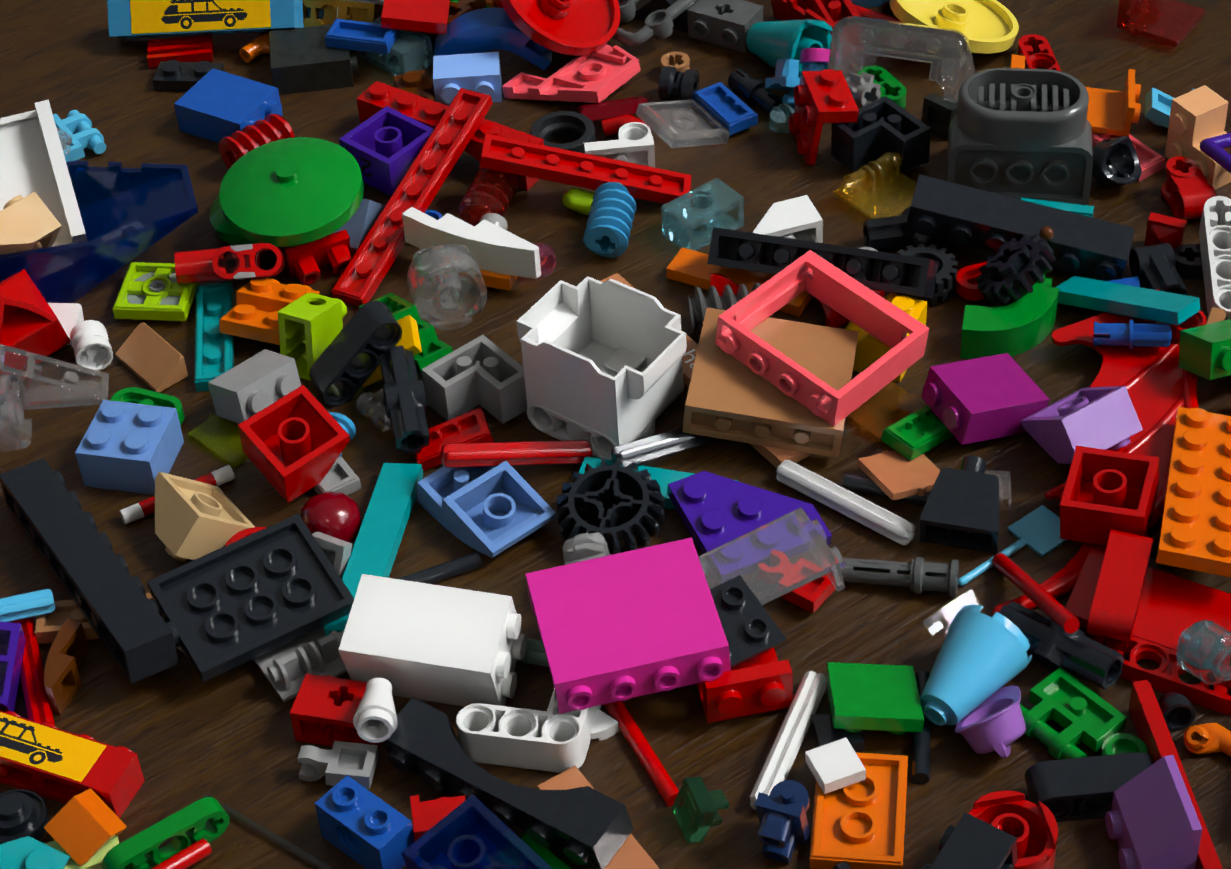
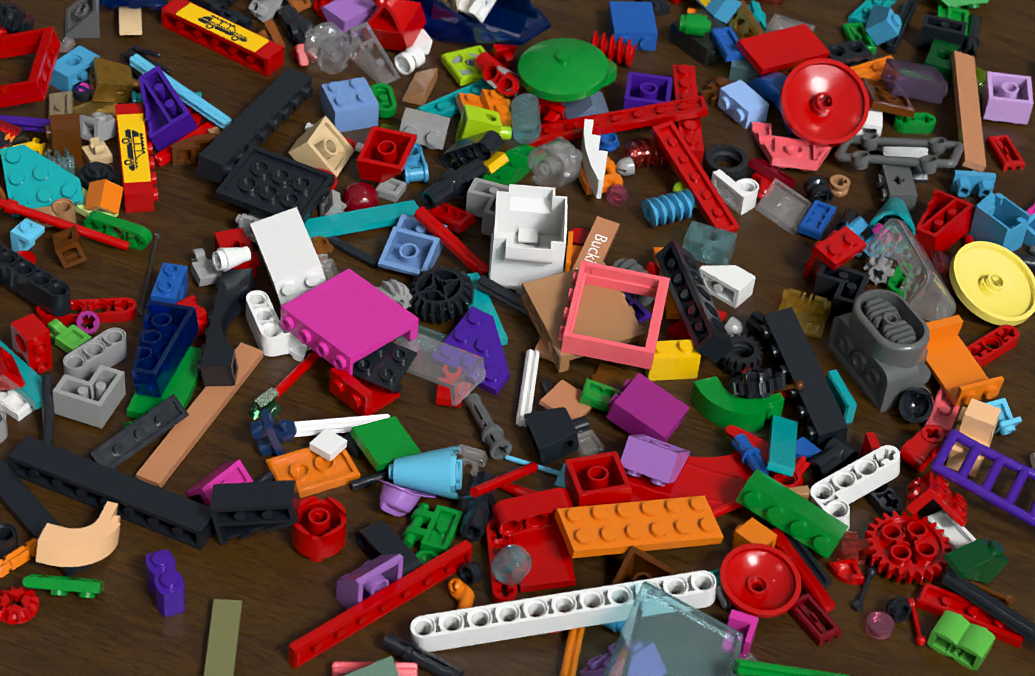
camera: 50 degrees right, 0 degrees up
(169, 245) = (504, 53): none -> red tile
(306, 45) = (694, 24): none -> green brick
(336, 274) = (526, 118): none -> clear light blue piece

